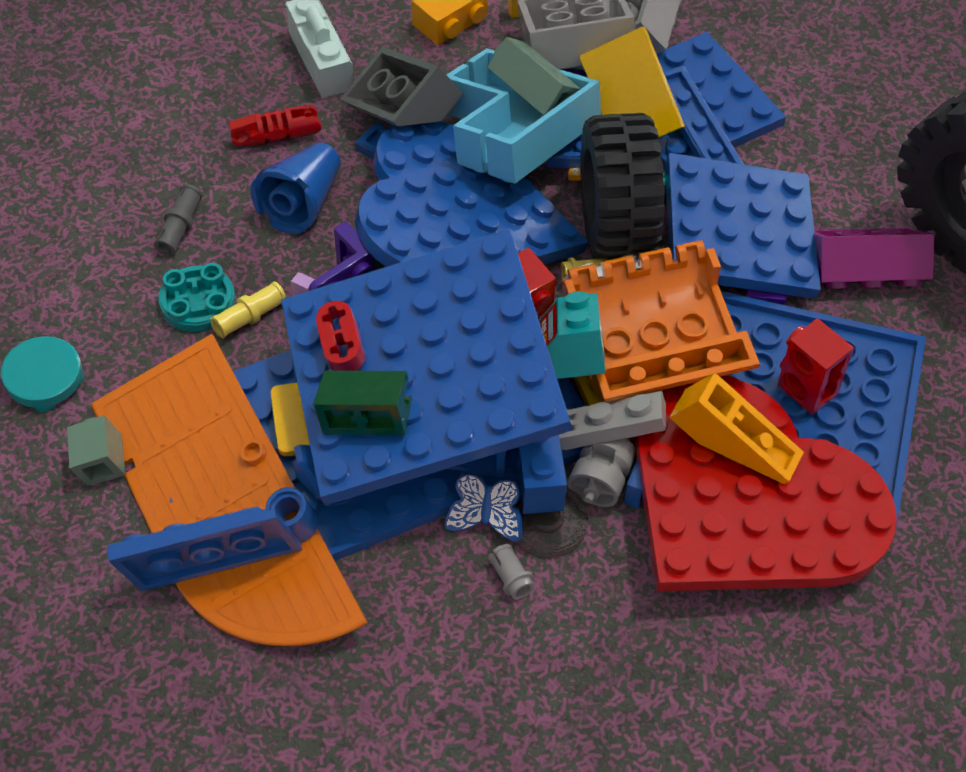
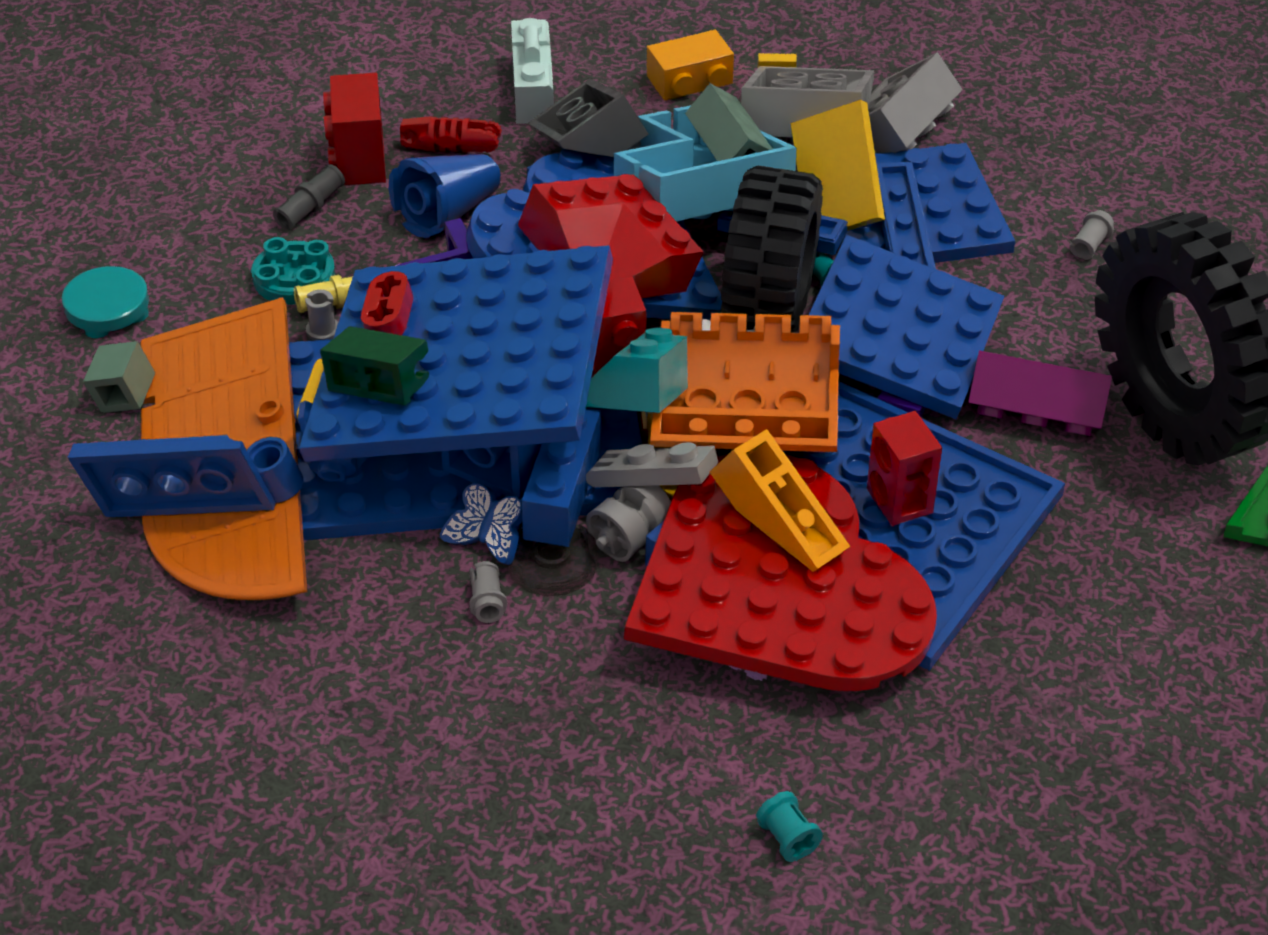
camera: 20 degrees right, 10 degrees down
(197, 142) = (355, 128): none -> red brick
(249, 345) = (321, 315): none -> light grey pin
(480, 197) = (618, 214): none -> red slope
(842, 89) = (1095, 229): none -> light grey pin
(853, 719) = (789, 826): none -> teal bush

